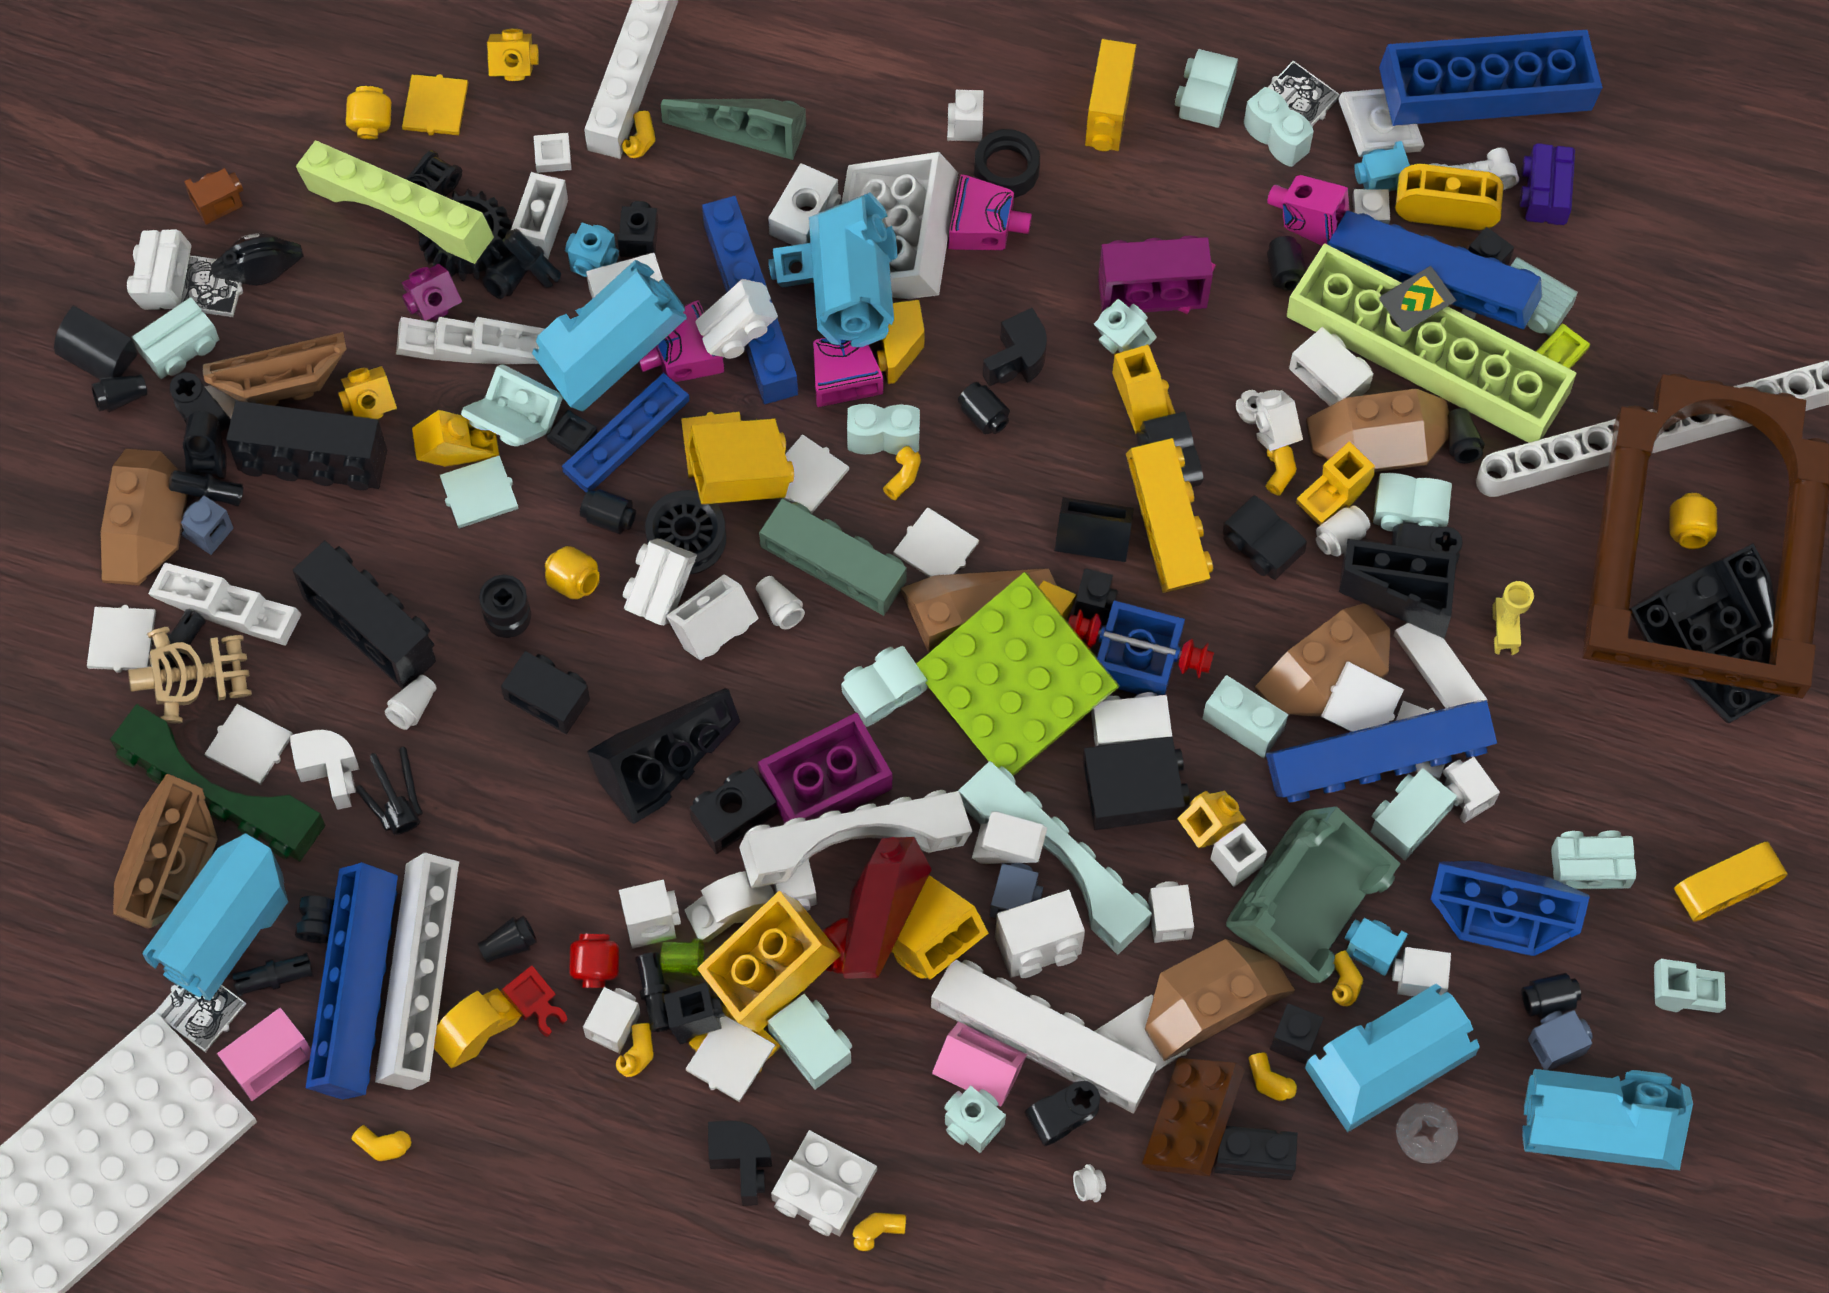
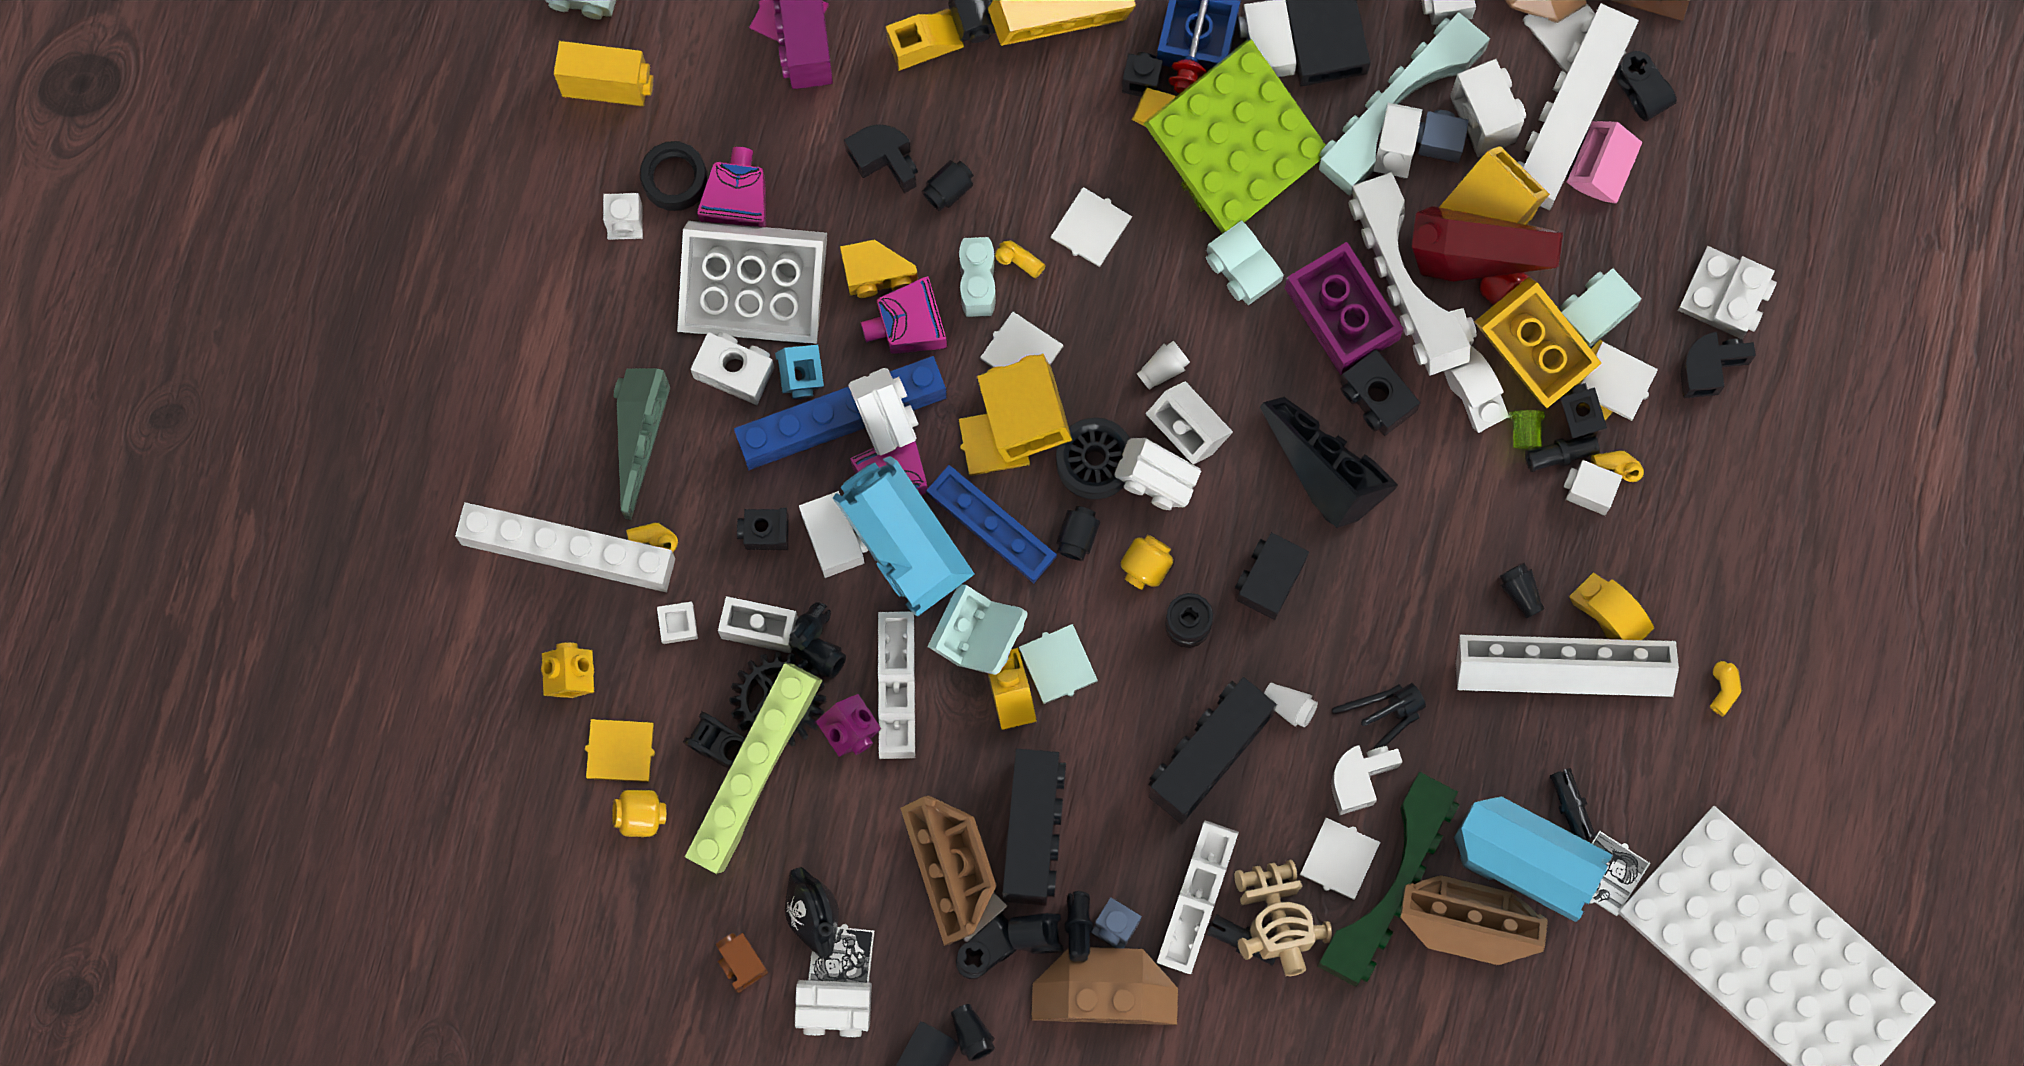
camera: 90 degrees left, 10 degrees up
(120, 638) = (1237, 997): white piece -> none
(176, 339) = (910, 979): light aqua brick -> none
(265, 1054) = (1652, 802): bright pink brick -> none
(315, 920) = (1518, 769): black wheel -> none
(352, 981) = (1580, 725): blue brick -> none
(367, 393) = (966, 777): yellow brick -> none
(531, 996) = (1577, 562): red plate -> none
(571, 433) = (991, 578): black tile -> none
(591, 248) = (794, 582): medium azure brick -> none
(594, 960) = (1537, 508): red head -> none
(649, 913) = (1496, 456): white brick -> none
(833, 556) = (1113, 317): sand green brick -> none
(853, 271) = (821, 304): medium azure brick -> none
(874, 1226) = (1762, 246): yellow arm -> none
(948, 601) = (1150, 190): medium nougat wedge -> none
(985, 1119) = (1660, 161): light aqua brick -> none
(1089, 1183) = (1706, 64): white plate -> none
(1094, 529) = (1068, 79): black brick -> none
(1123, 327) = (872, 51): light aqua brick -> none

